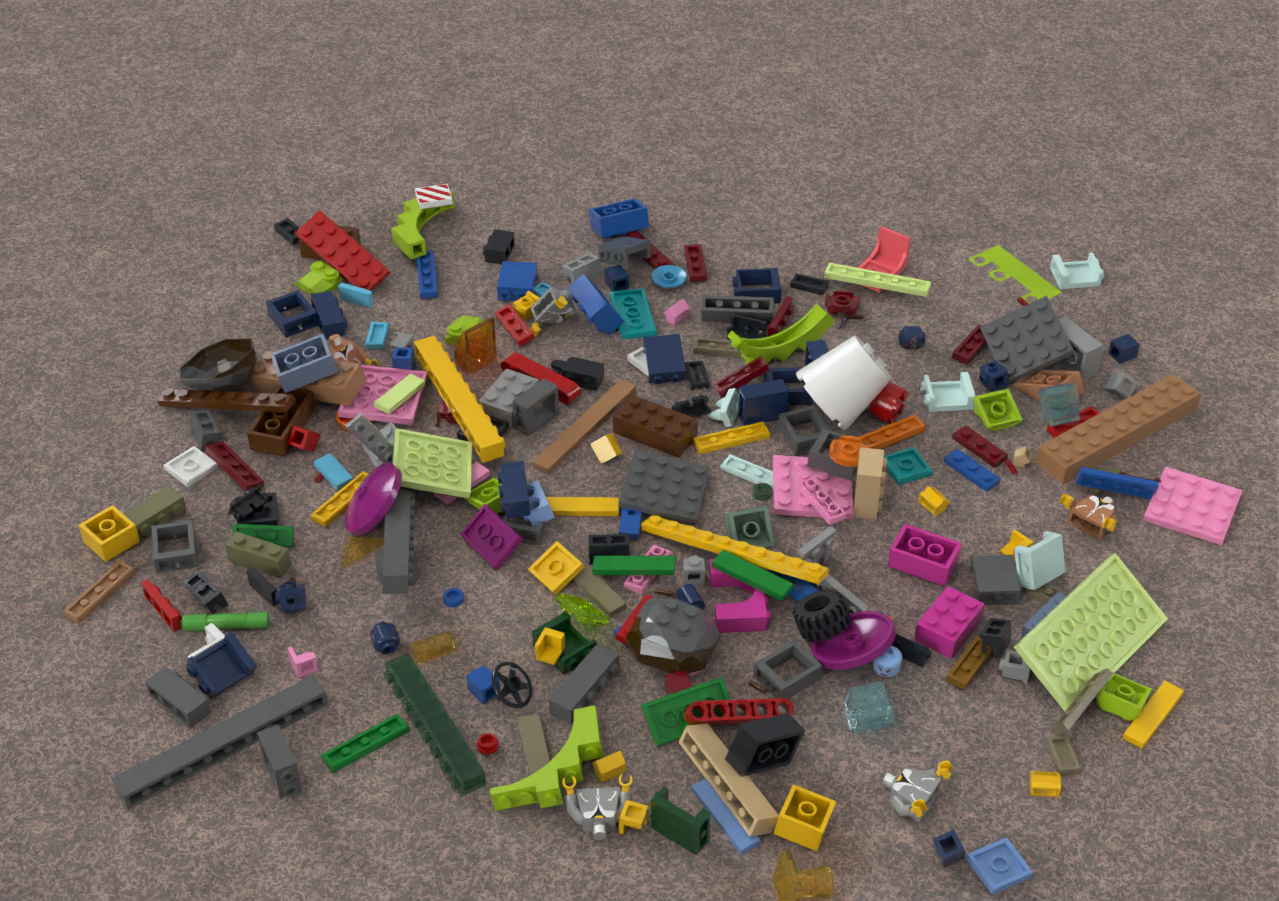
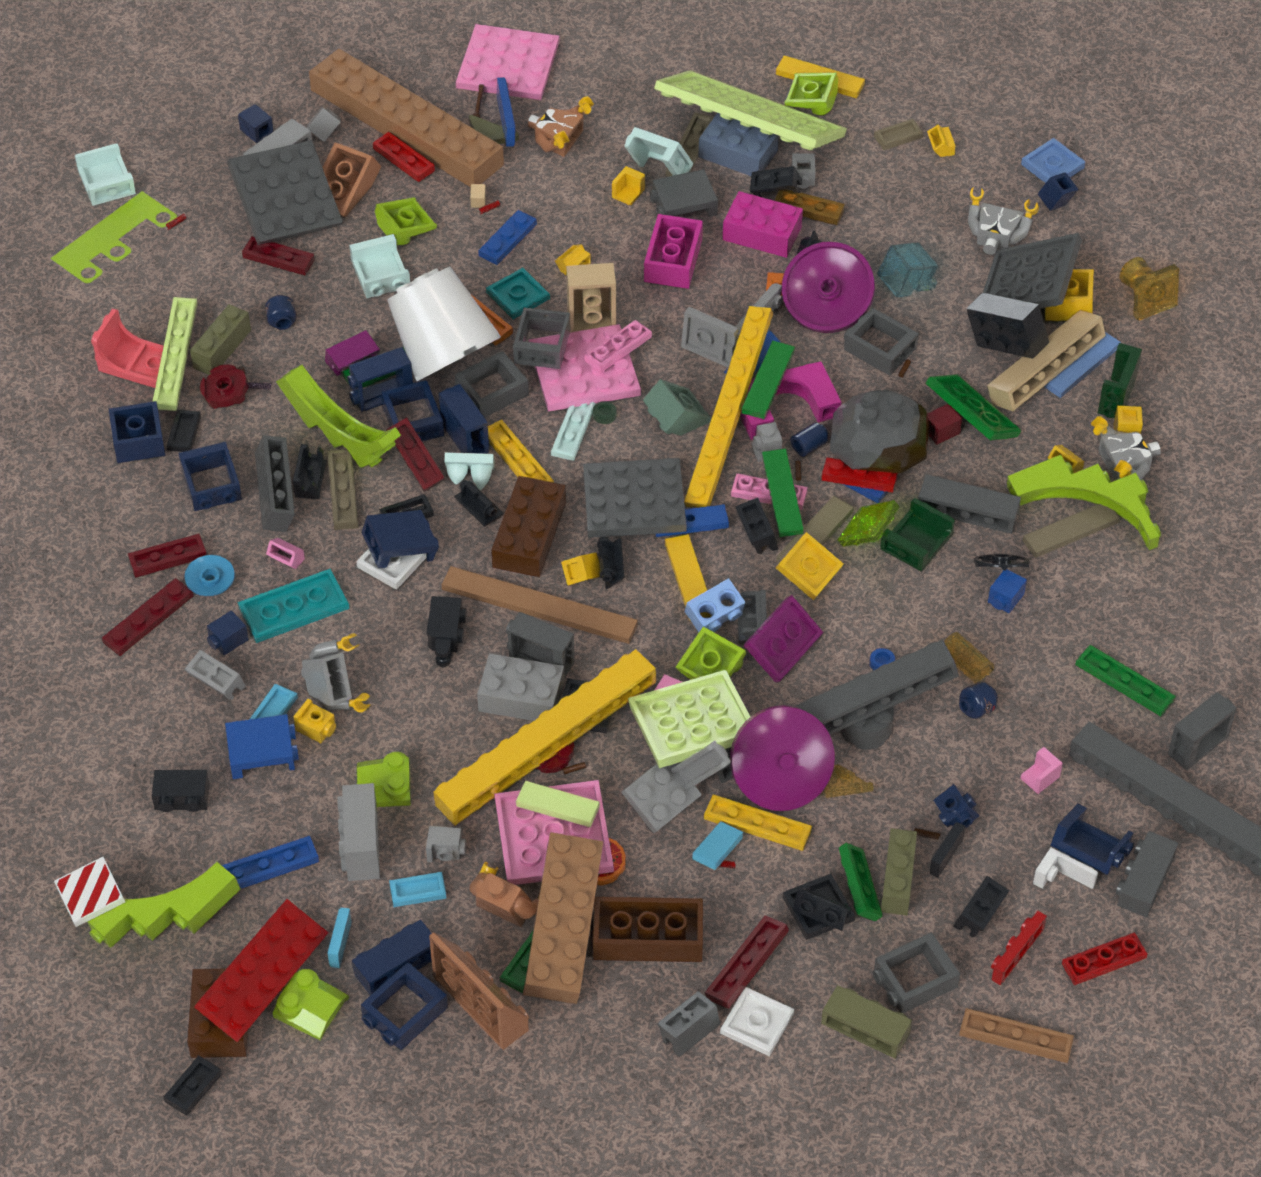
camera: 105 degrees left, 10 degrees up
(109, 533) = (929, 1050): yellow brick -> none
(128, 657) = (1092, 964): none -> red tile
(220, 366) = (577, 1026): rock -> none
(226, 400) = (636, 1007): reddish brown plate -> none
(226, 621) = (1012, 869): bright green piece -> none
(277, 324) = (477, 992): none -> nougat slope
(303, 438) = (676, 885): red brick -> none
(304, 363) = (580, 887): sand blue brick -> none
(404, 358) = (484, 823): blue brick -> none
(423, 306) = (358, 832): none -> light grey brick
(434, 725) = (1077, 621): clear green brick -> none
(476, 347) = (441, 737): clear orange slope -> none
(487, 744) = (1081, 570): red plate -> none
(513, 489) = (719, 613): dark blue brick -> none
(514, 325) = (359, 726): red plate -> none
(549, 646) = (935, 543): yellow panel -> none
(567, 389) = (465, 669): red beam -> none
(595, 305) = (315, 627): blue brick -> none
(598, 460) = (611, 562): none -> black hinge
(619, 218) = (92, 651): blue brick -> none
(619, 249) = (176, 624): dark grey panel -> none
(729, 715) = (961, 363): red beam -> none
(781, 317) = (250, 439): dark red plate -> none
(806, 255) = (136, 432): none -> dark blue brick
(821, 615) = (799, 299): black tyre -> none
(827, 783) = (1035, 270): none -> dark grey plate
(846, 450) = (549, 317): orange tile -> none
(887, 304) = (220, 339): none -> olive brick
(980, 446) = (463, 234): dark red plate -> none
(993, 376) = (343, 226): dark blue brick -> none
(1059, 403) = (395, 158): clear light blue plate -> none
(1081, 701) = (839, 115): dark tan tile -> none

